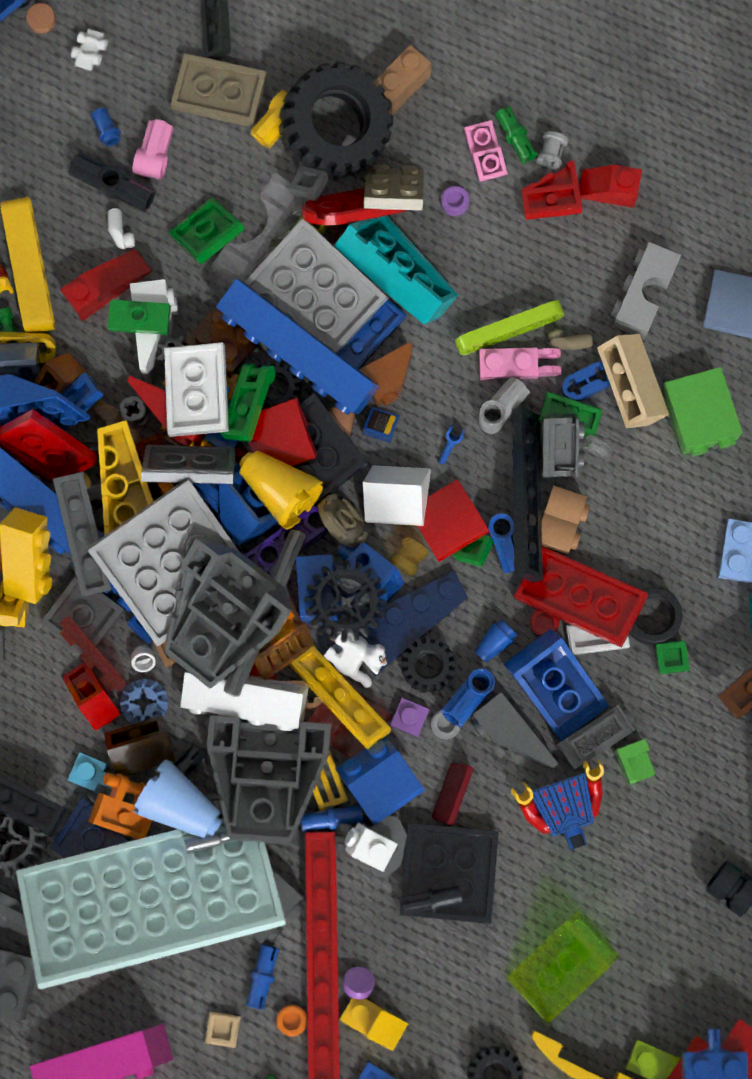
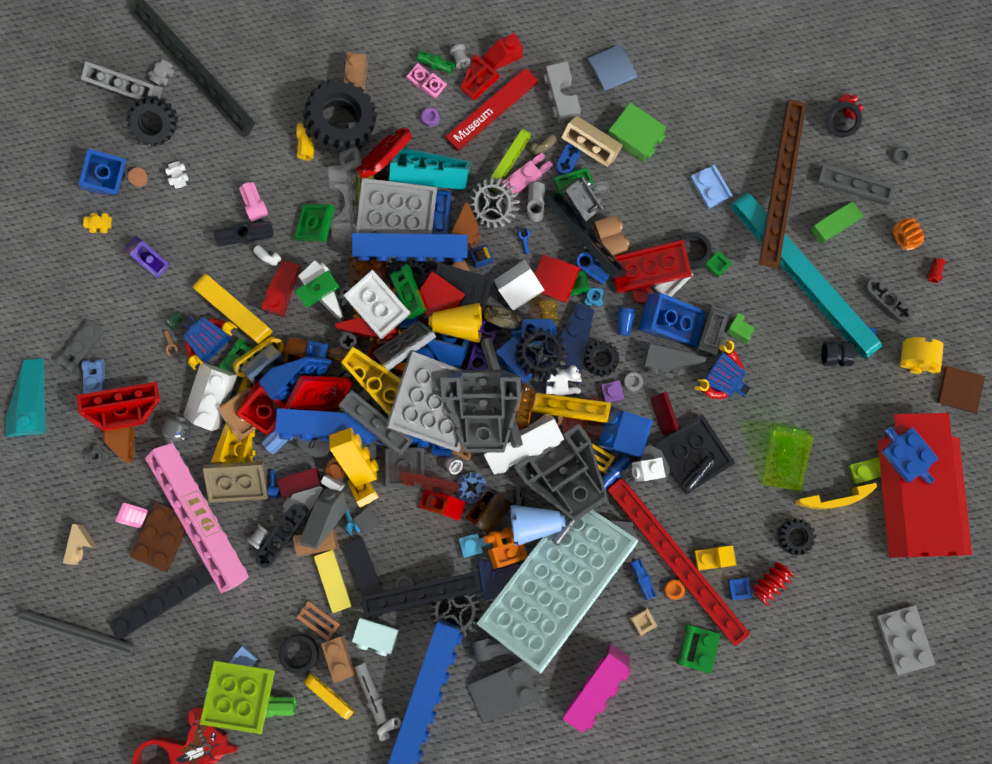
camera: 40 degrees left, 0 degrees up
(108, 132) = (222, 210): blue pin -> none
(218, 90) = (263, 147): dark tan plate -> none
(358, 983) = (693, 544): medium lavender tile -> none
(394, 188) = (396, 130): dark tan plate -> none
(446, 379) = (488, 197): none -> light grey gear
(468, 698) = (635, 359): blue piece -> none
(489, 581) = (594, 292): none -> dark azure plate
(540, 247) = (491, 109): none -> red tile

